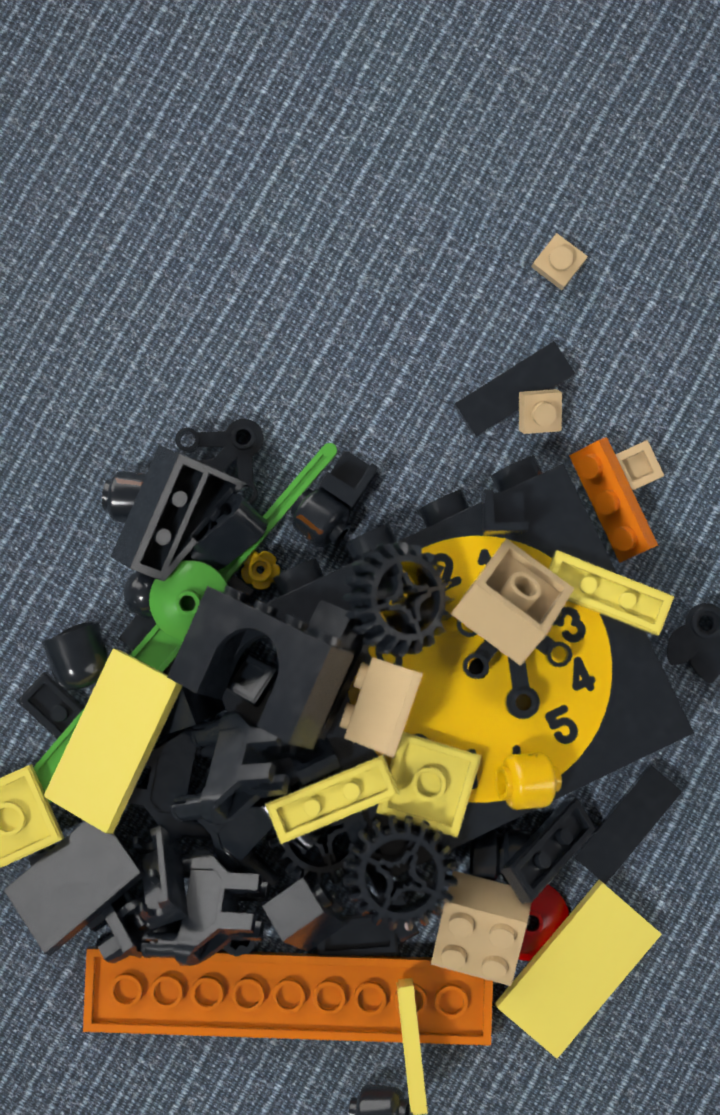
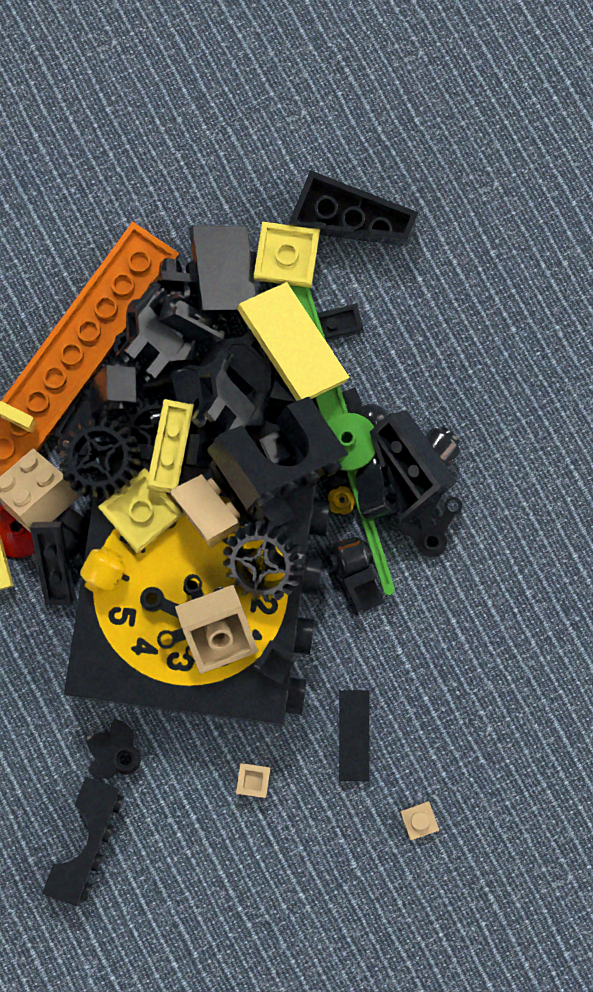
camera: 125 degrees right, 5 degrees down
(77, 655) = (360, 355): black helmet -> none
(540, 411) = (328, 741): tan plate -> none
(613, 500) = (241, 750): orange plate -> none
(613, 594) = (182, 698): light yellow tile -> none
(627, 824) = (35, 626): black tile -> none

